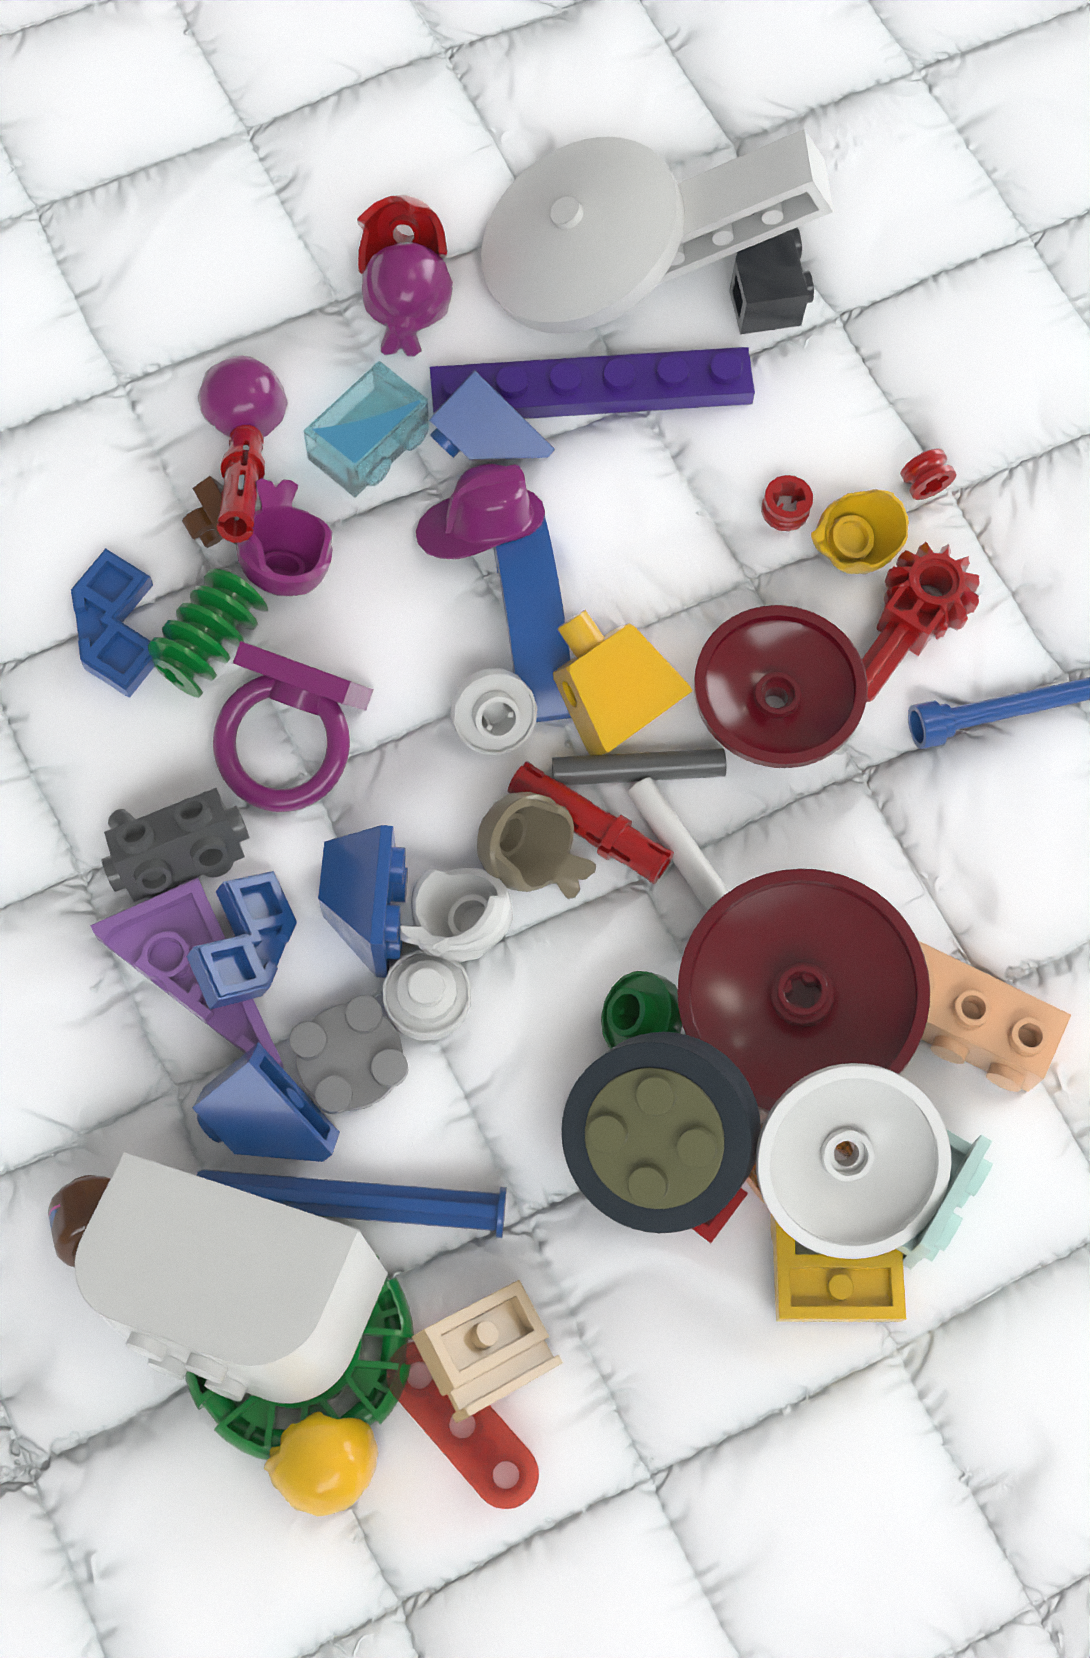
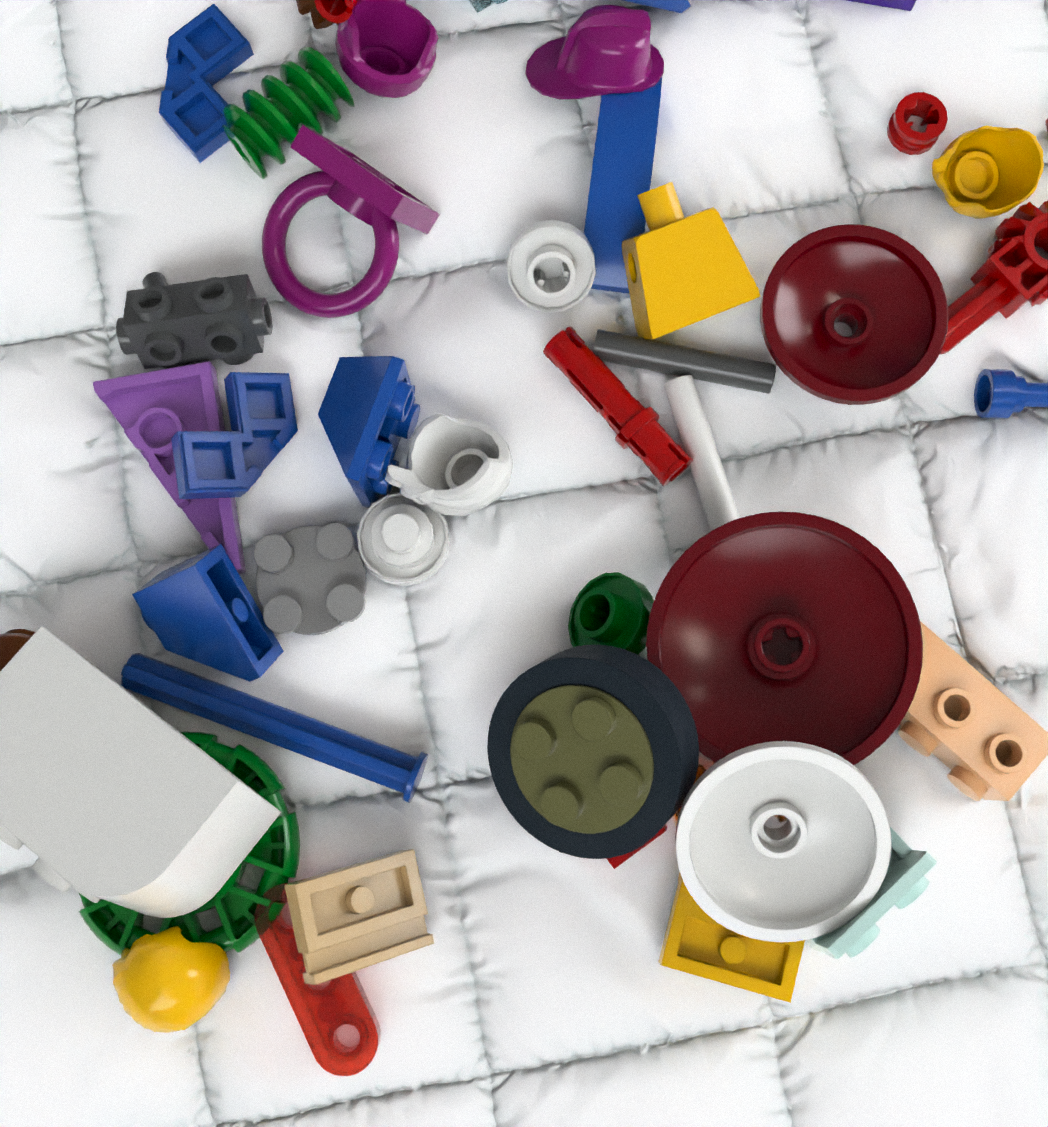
camera: 20 degrees right, 10 degrees up
(529, 844) = (546, 412): dark tan hat -> none

